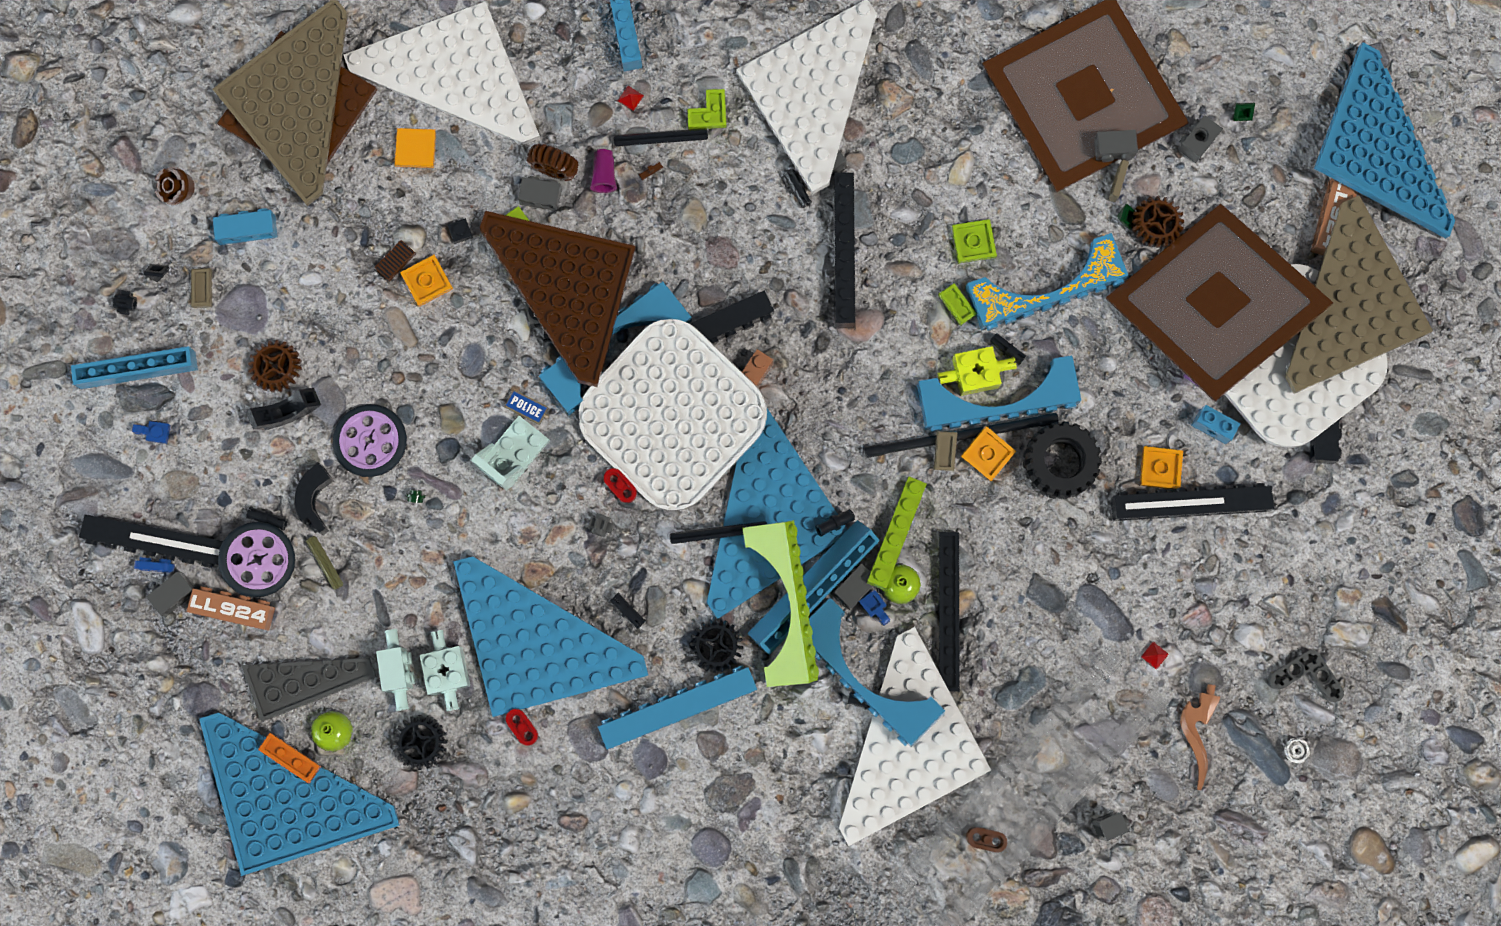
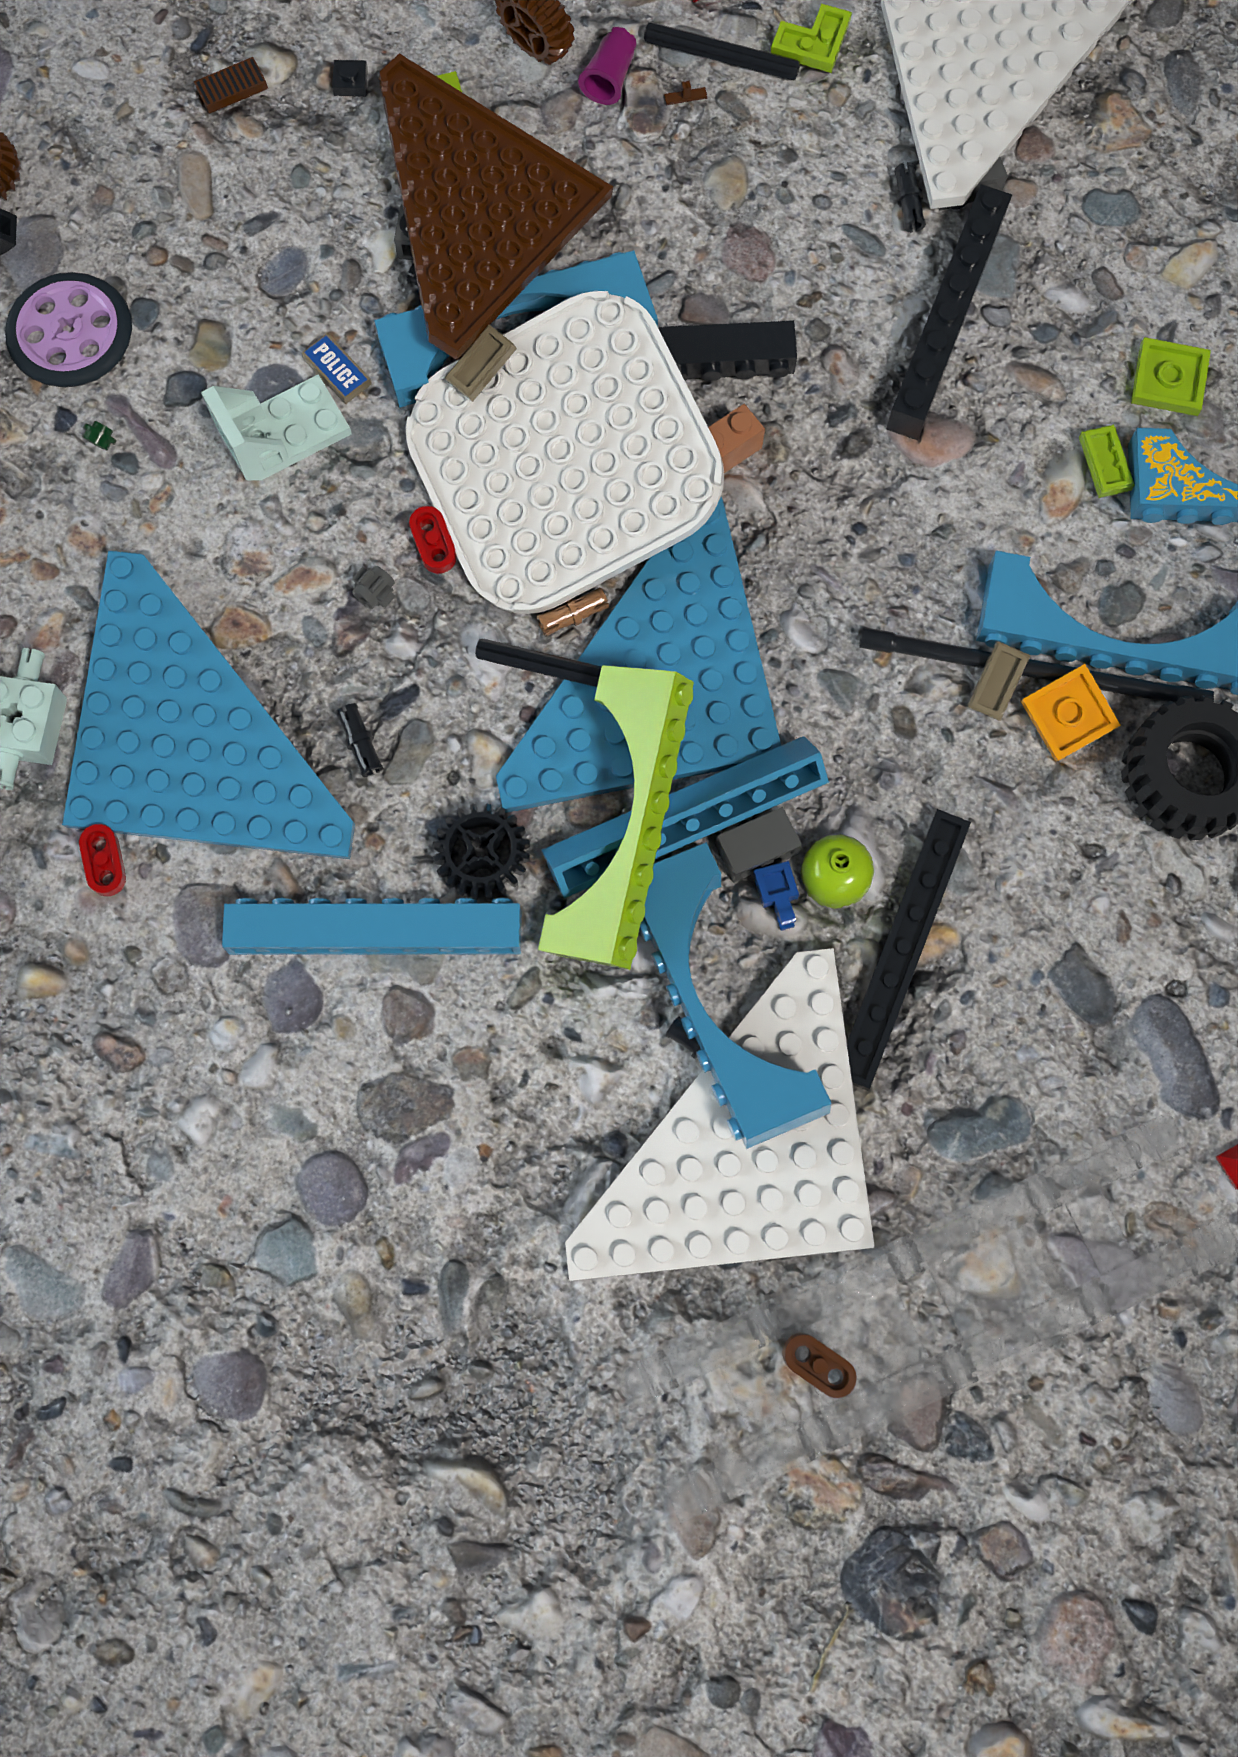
camera: 25 degrees right, 5 degrees down
(426, 280) = (265, 130): light orange tile -> none
(540, 193) = (496, 64): dark grey brick -> none
(609, 381) = (480, 363): none -> dark tan tile
(710, 498) = (573, 611): none -> medium nougat pin
(834, 522) = (764, 724): black pin -> none
(896, 533) = (861, 782): lime plate -> none
(971, 382) = (1101, 573): neon yellow brick -> none
(1007, 348) = (1166, 560): black axle -> none
(1111, 825) = (1057, 1433): dark grey brick -> none

